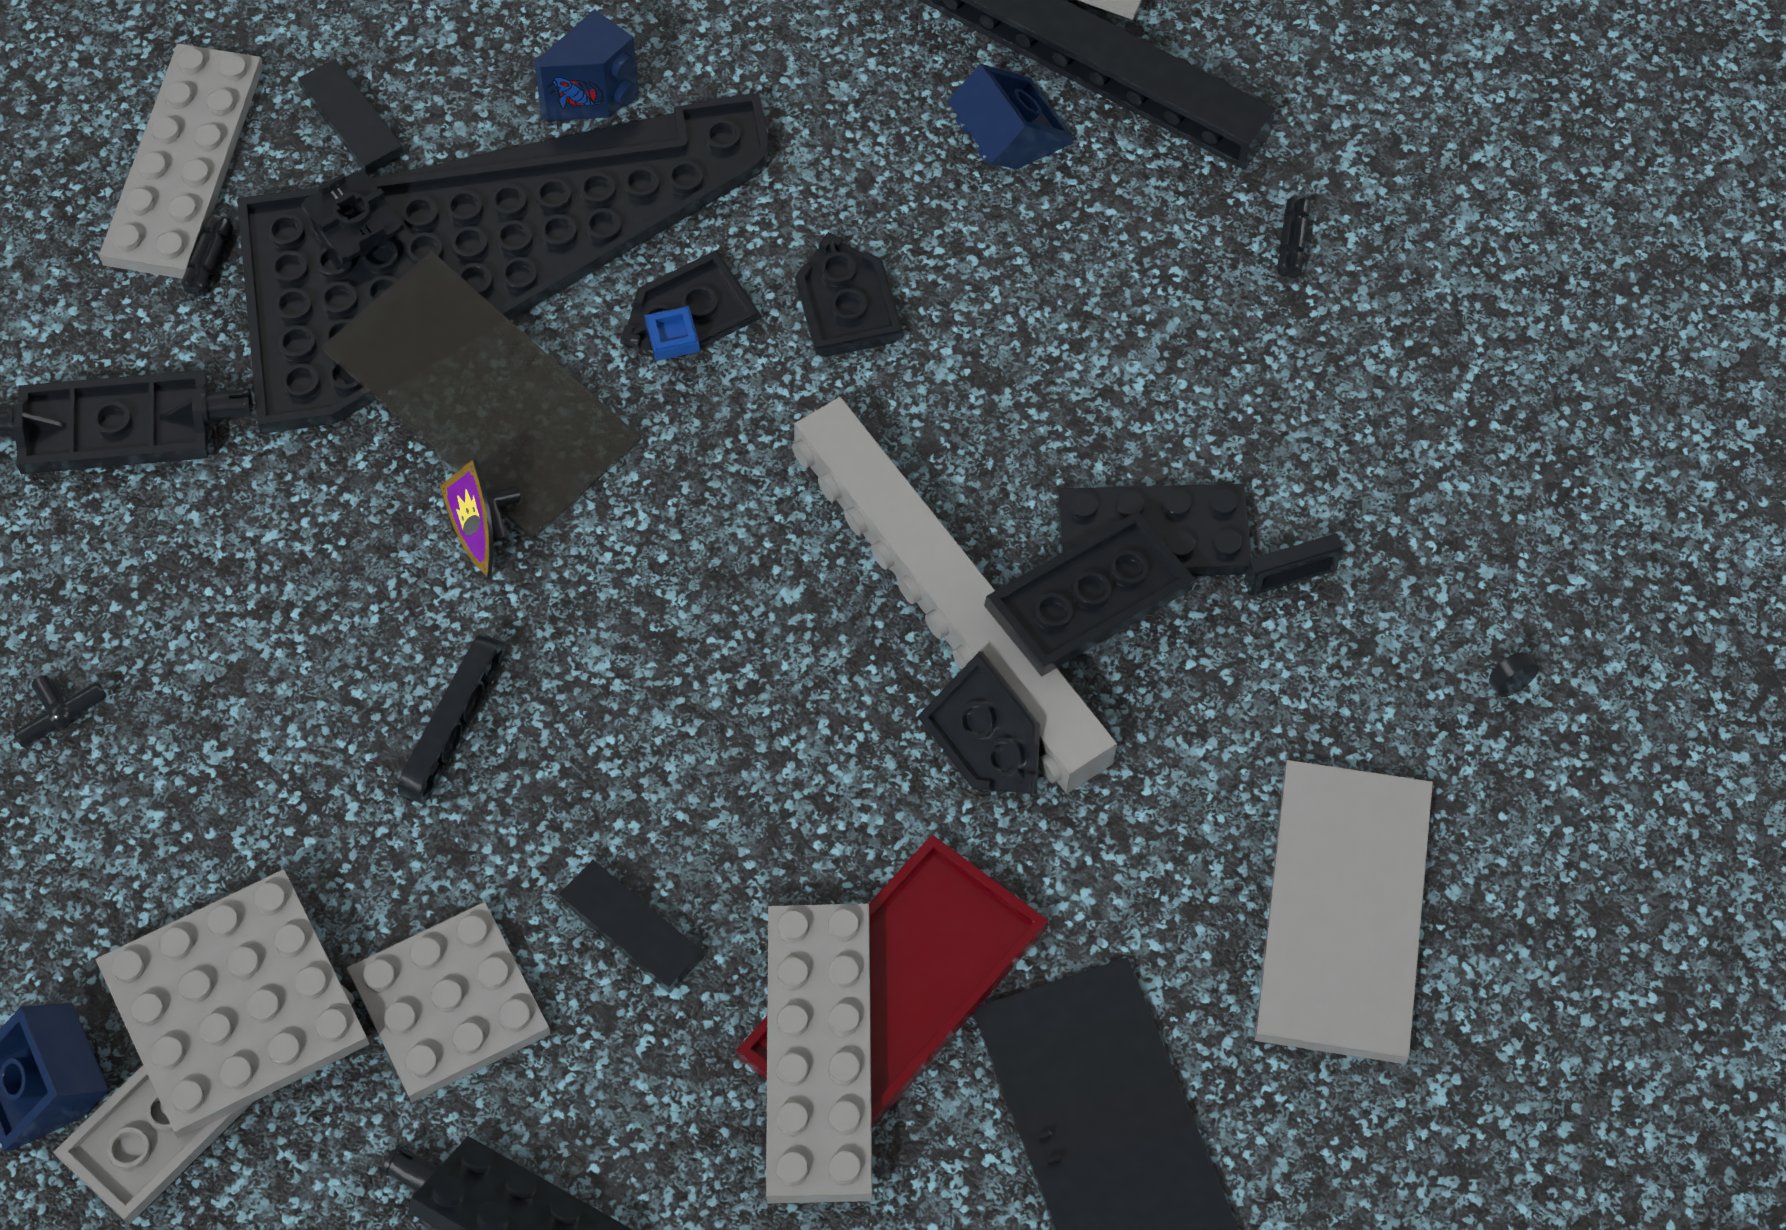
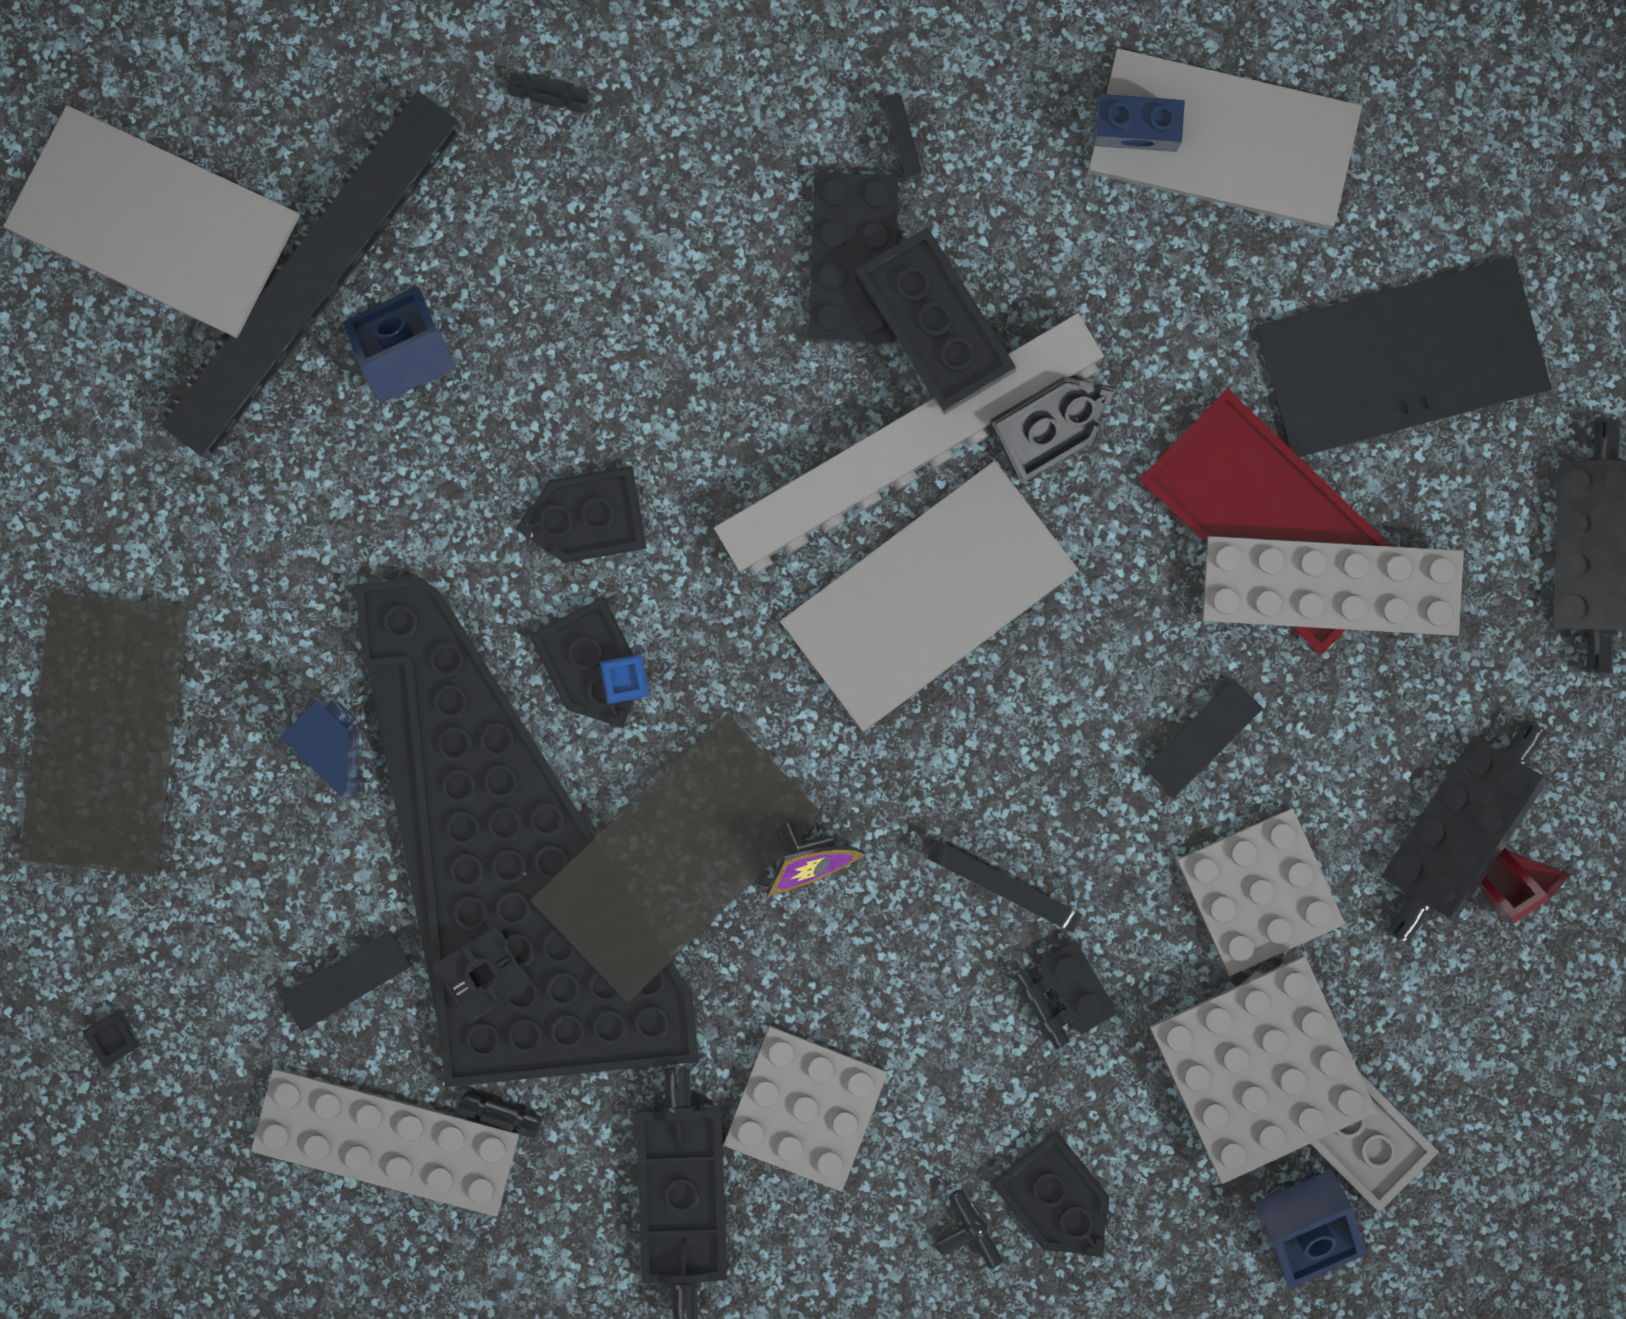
camera: 85 degrees left, 25 degrees up
(90, 798) = (1056, 1198): none -> black tile
(204, 539) = (805, 1108): none -> light grey plate
(335, 806) = (1077, 988): none -> black plate
(783, 630) = (929, 596): none -> light grey piece
(1347, 794) = (1138, 122): none -> dark blue brick

